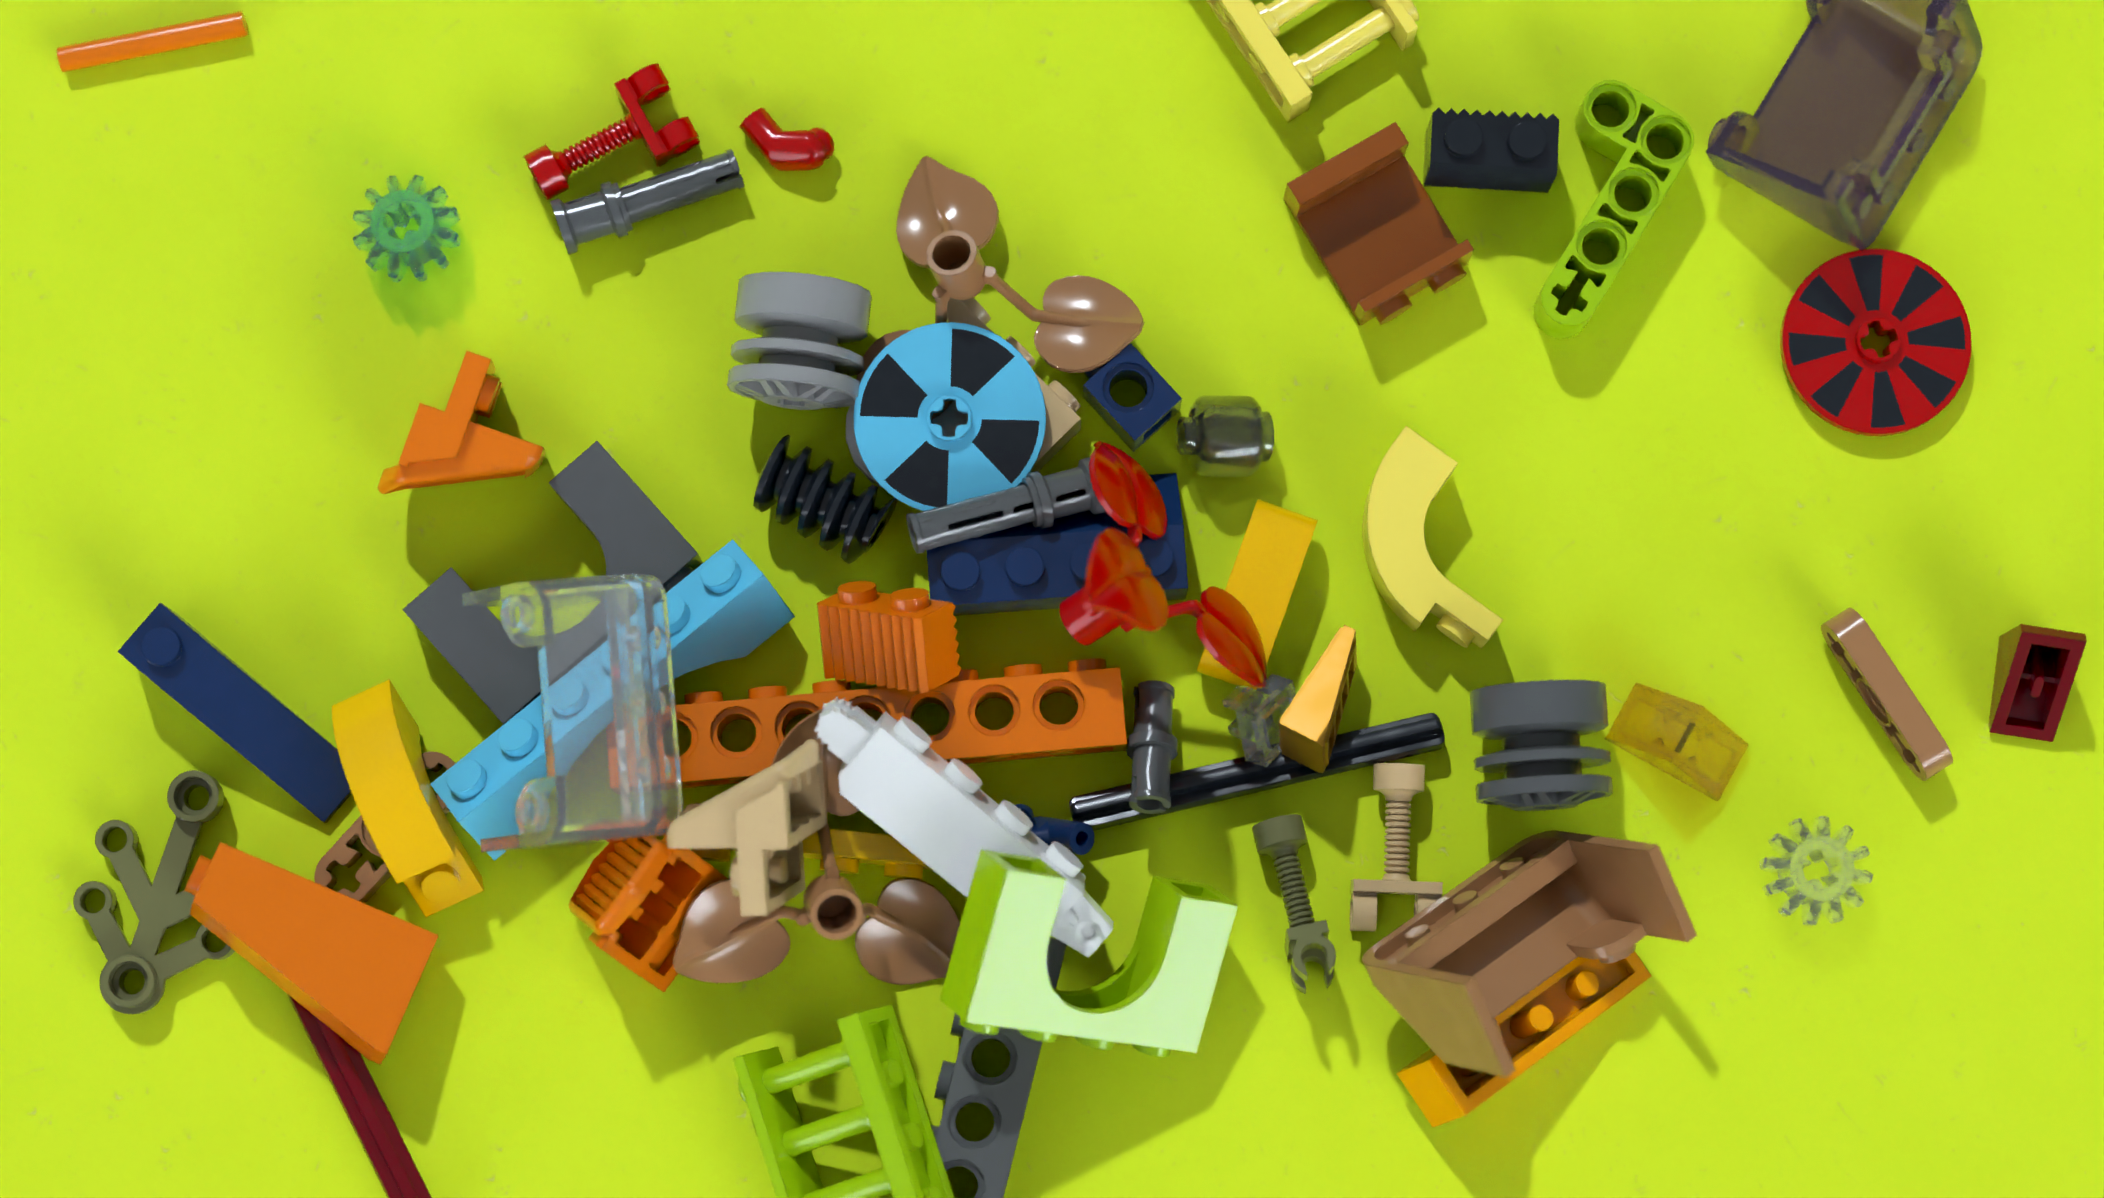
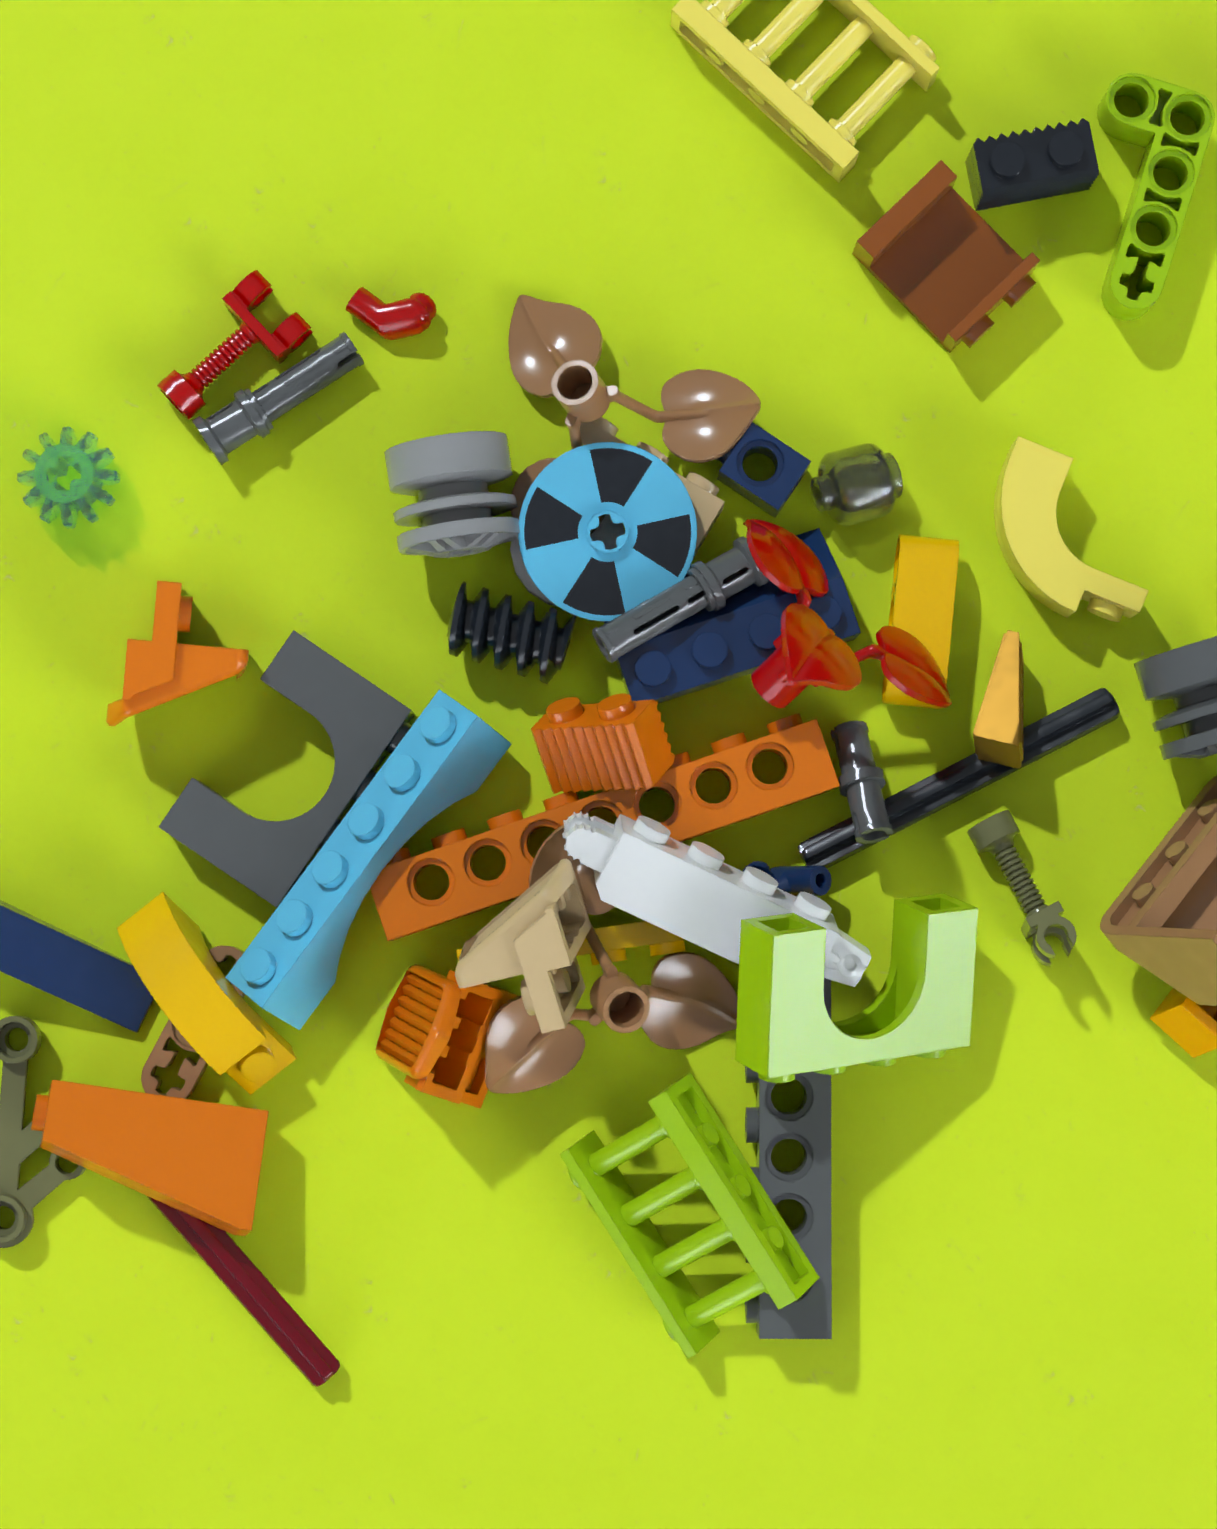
camera: 15 degrees left, 5 degrees up
(602, 709) = (366, 874): clear windscreen -> none
(1259, 717) = (952, 731): clear tile -> none
(1398, 784) = (1088, 761): tan bar -> none

